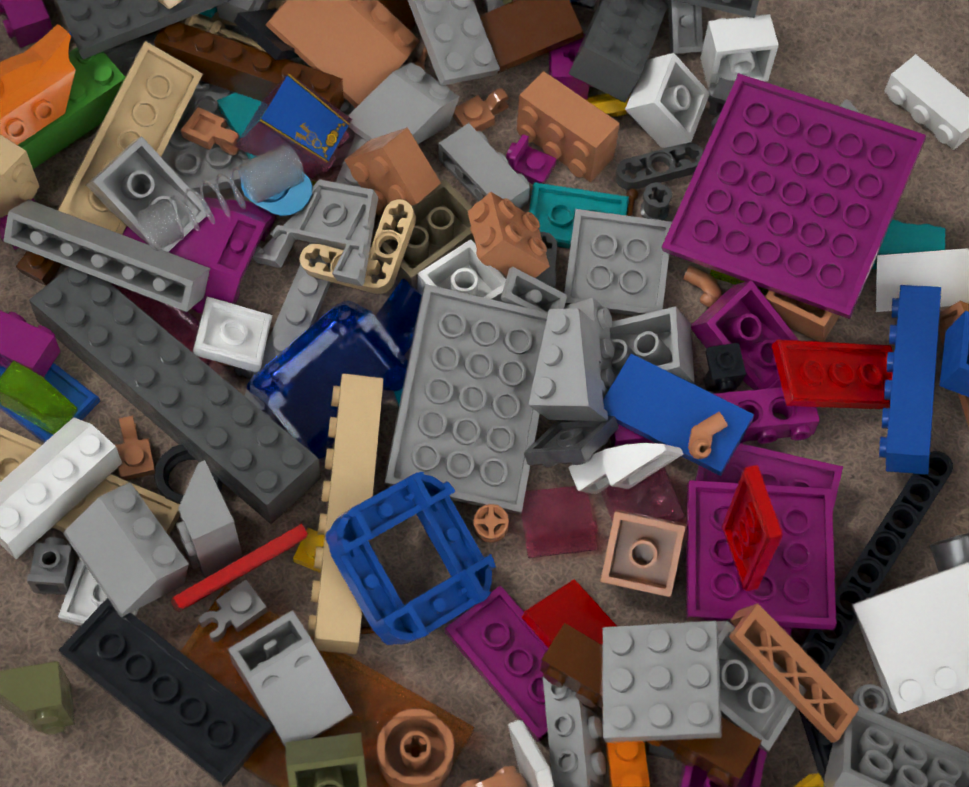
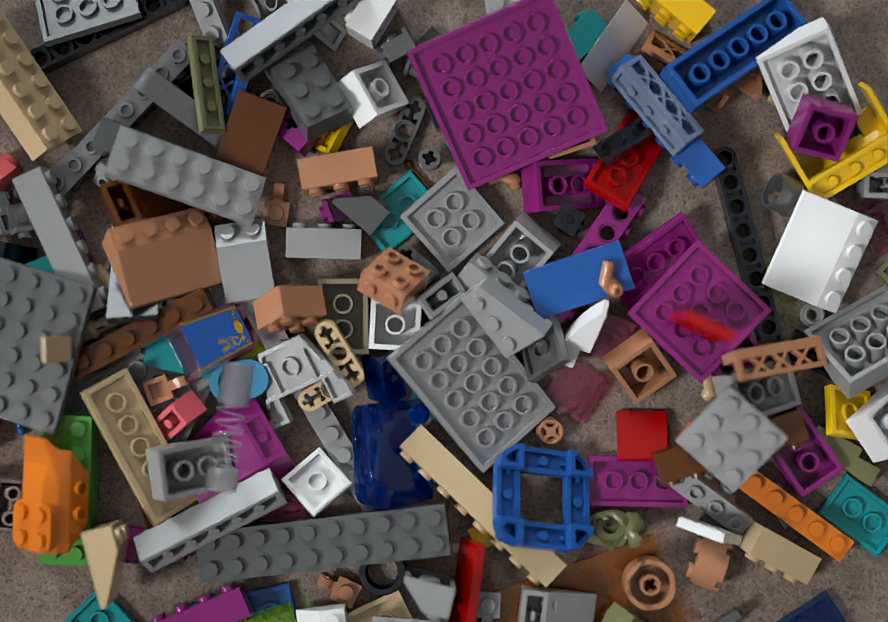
camera: 50 degrees left, 25 degrees up
(197, 158) = (180, 415): none -> coral slope
(428, 660) = (629, 528): none -> olive piece
(549, 175) = (363, 210): none -> dark grey slope
(850, 352) = (622, 142): none -> black hinge
(913, 338) = (652, 106): none -> sand blue fence

